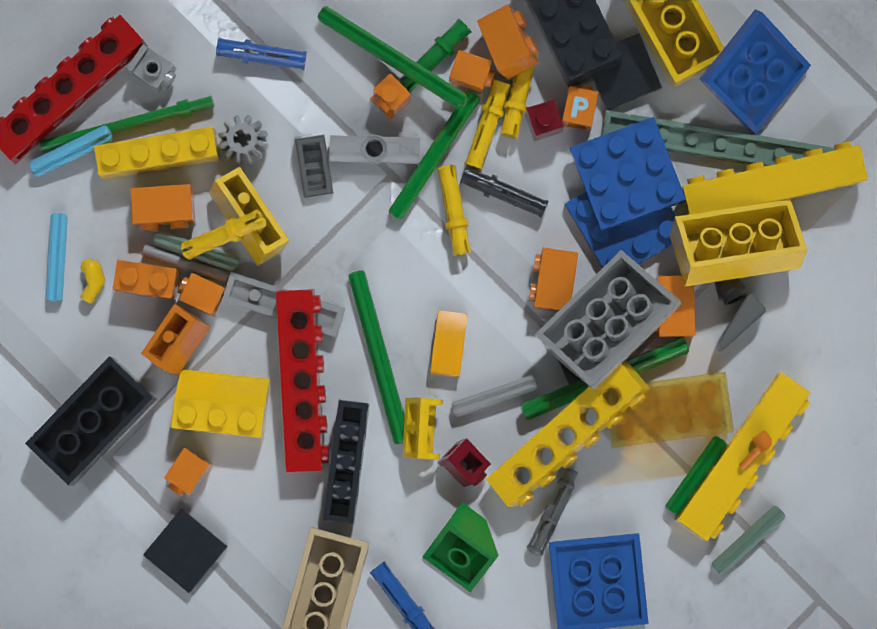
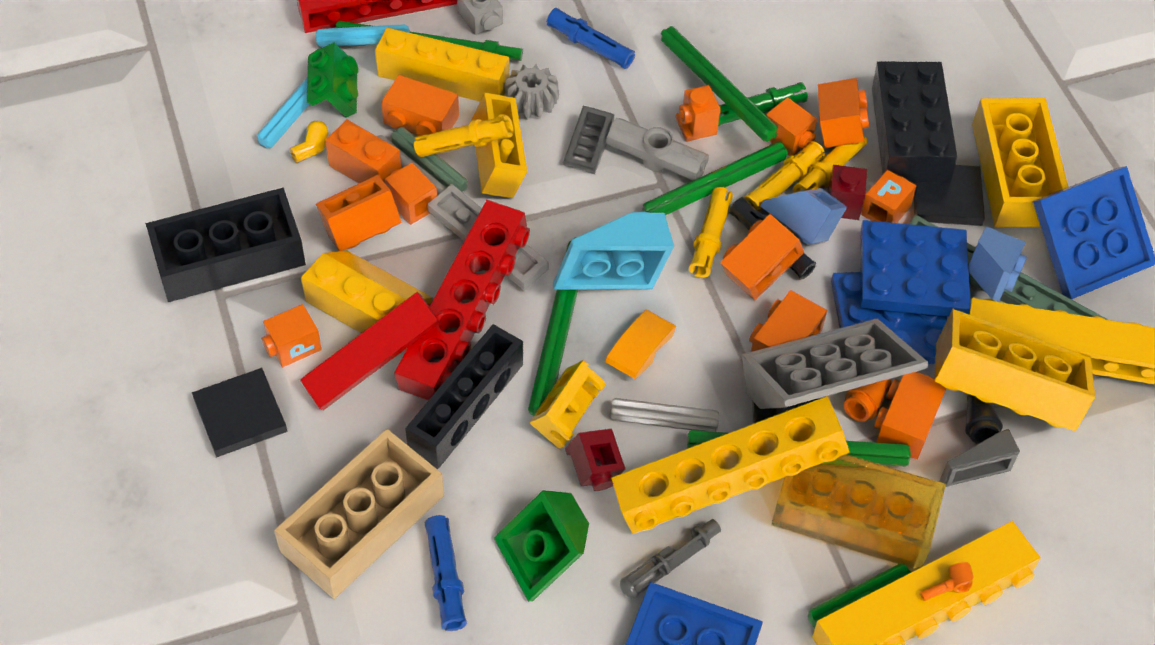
camera: 20 degrees right, 30 degrees down
(75, 214) = (333, 78): none -> green bracket
(258, 463) = (370, 351): none -> red tile
(411, 272) = (618, 254): none -> medium azure slope
(506, 224) = (761, 256): none -> orange brick
(520, 158) = (808, 213): none -> medium blue slope
(688, 143) = (997, 262): none -> medium blue slope

